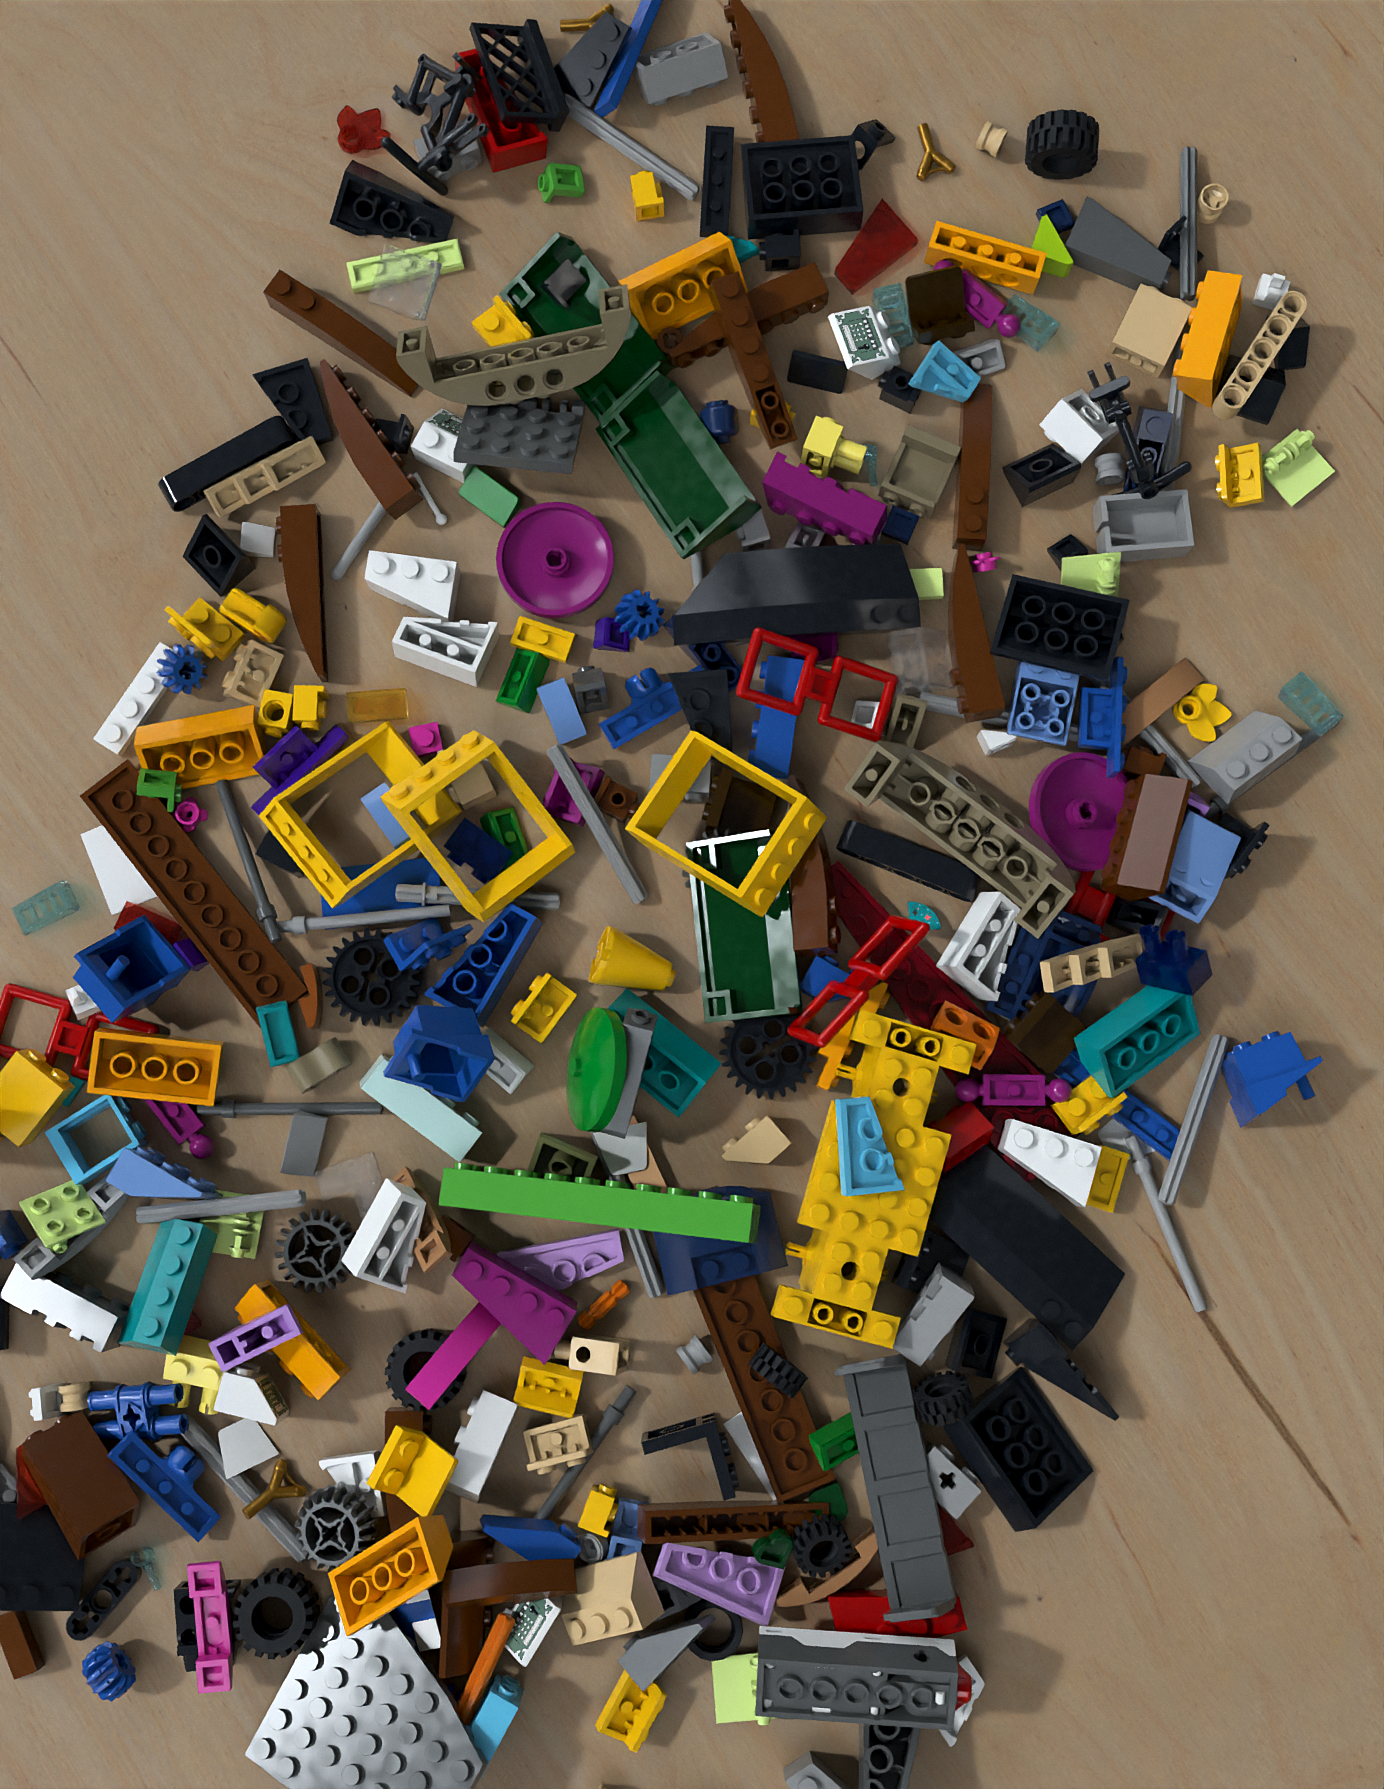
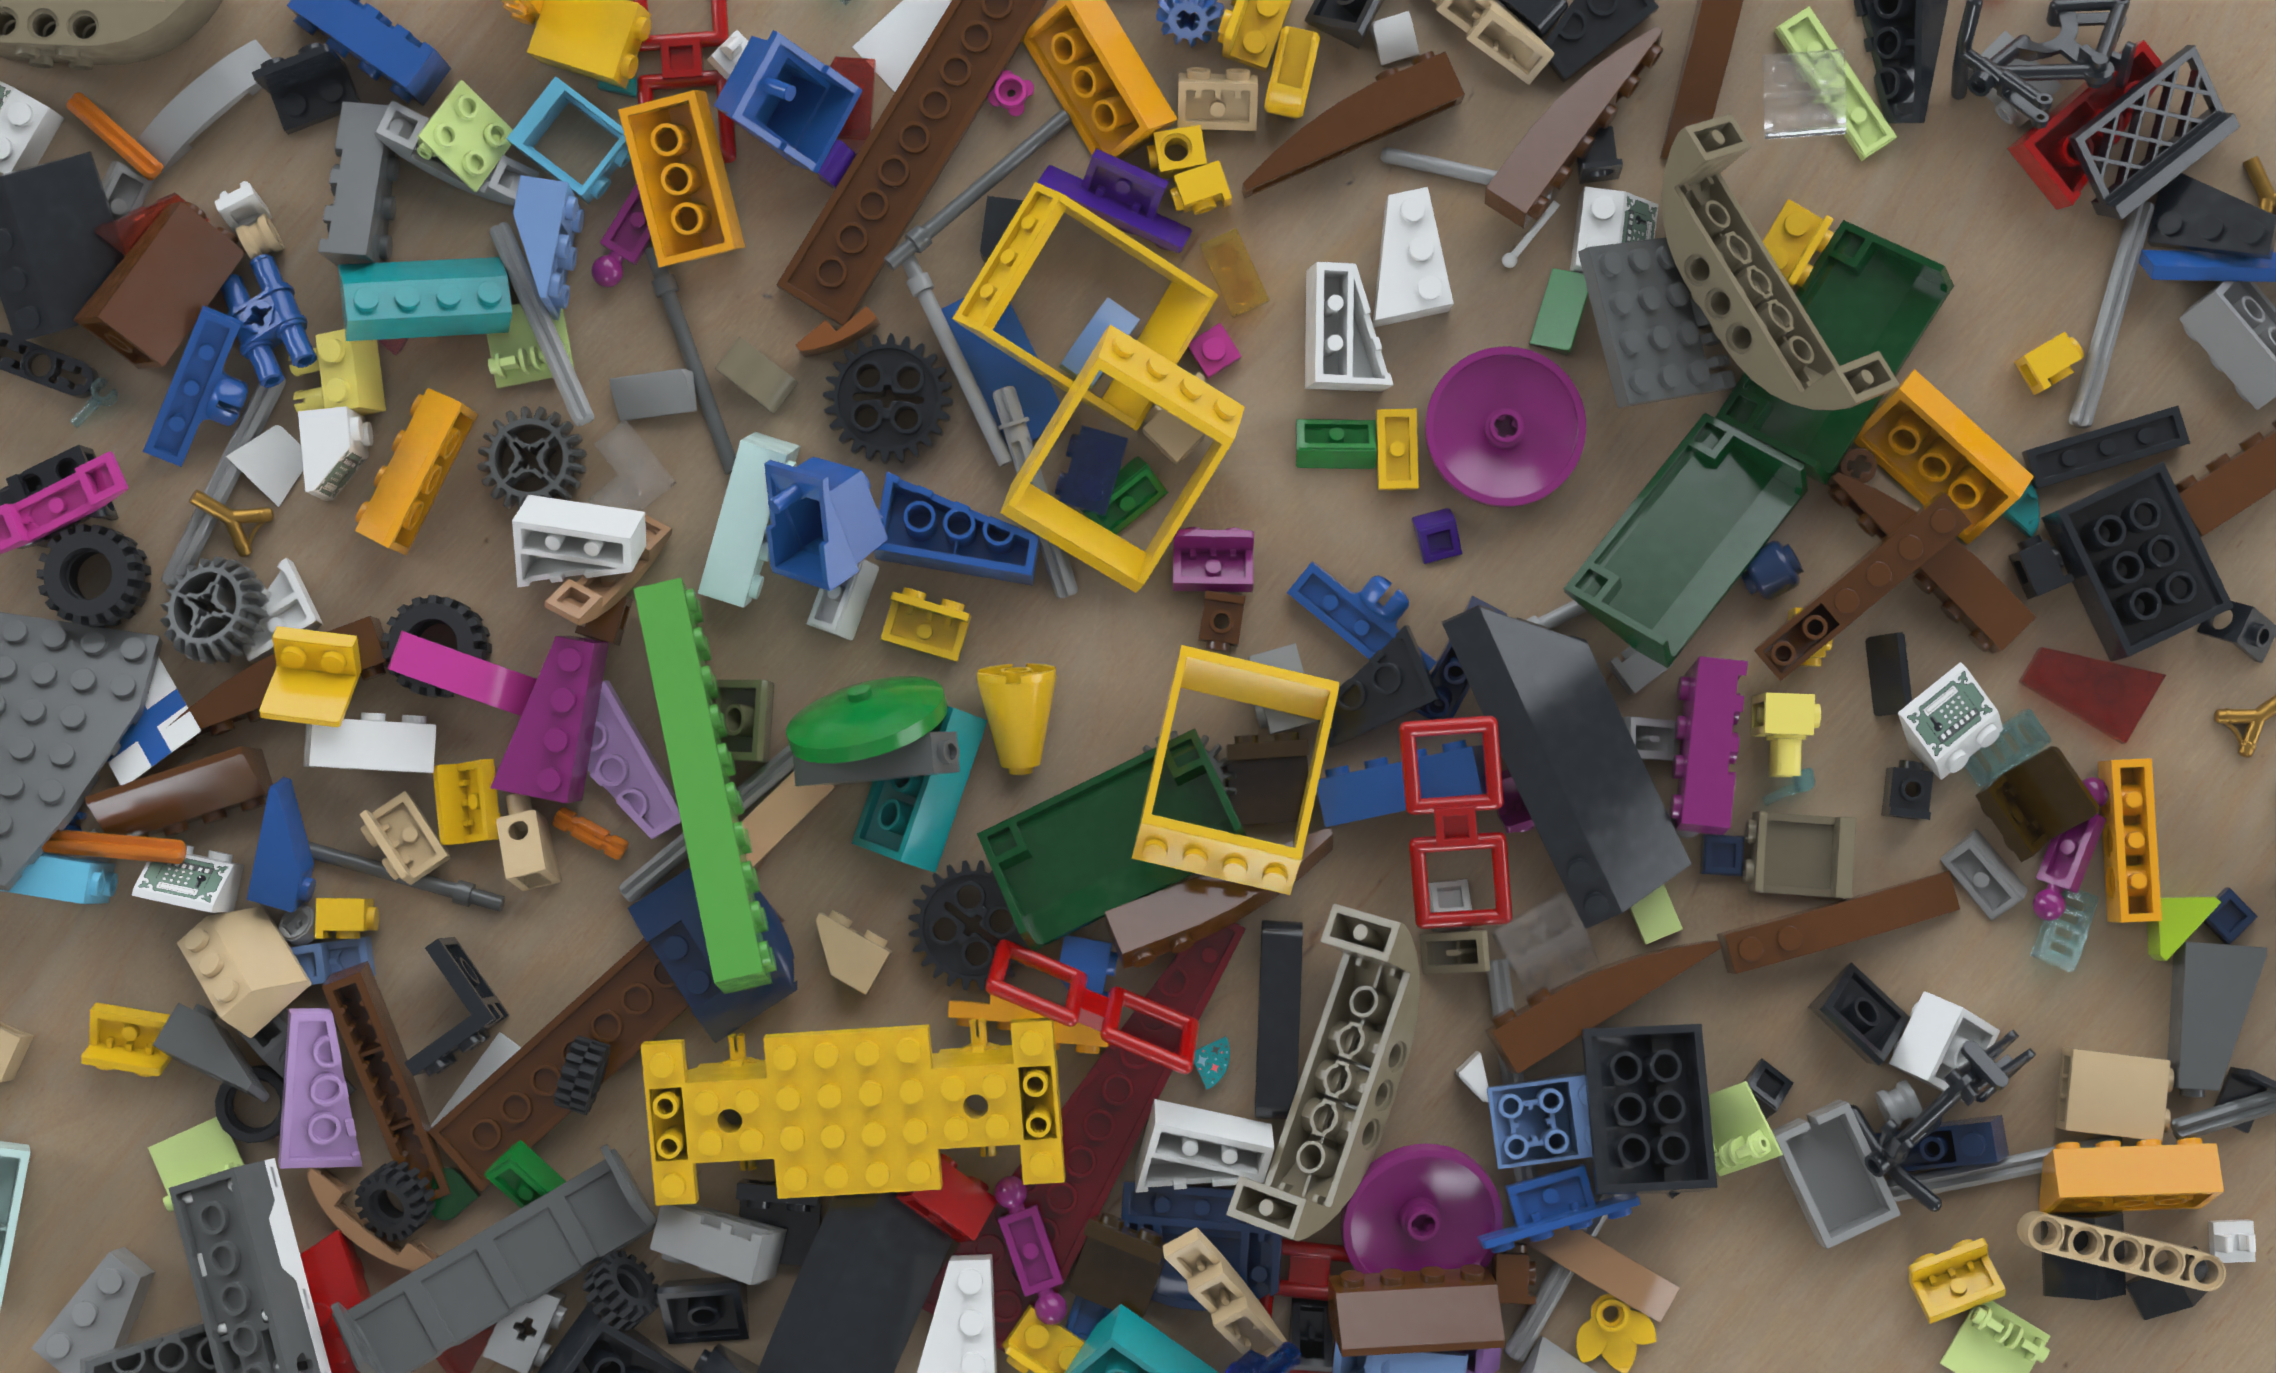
camera: 75 degrees right, 5 degrees up
(159, 784) = (1031, 43): bright green bracket -> none
(255, 1337) = (399, 427): medium lavender slope -> none
(278, 1033) = (777, 310): teal tile -> none
(391, 1571) = (184, 696): light orange slope -> none
(422, 942) = (950, 447): blue bracket -> none
(509, 1582) = (221, 839): reddish brown slope -> none
(561, 181) = (2026, 243): bright green bracket -> none
(561, 711) = (1312, 507): medium blue slope -> none
(563, 283) = (1883, 298): black bracket -> none
(590, 689) = (1352, 533): dark grey slope -> none
(597, 823) = (1180, 607): light grey axle -> none
(625, 1154) = (780, 797): white sticker -> none
(628, 615) = (1482, 570): blue gear -> none
(694, 1354) = (569, 966): light grey wheel -> none
(773, 1549) = (370, 1145): dark green tile -> none
(863, 1156) = (876, 1084): medium azure wing -> none
(945, 374) = (1943, 843): medium azure wing -> none
(966, 1026) = (1085, 1164): orange brick -> none
(984, 562) = (1710, 982): dark pink plate -> none

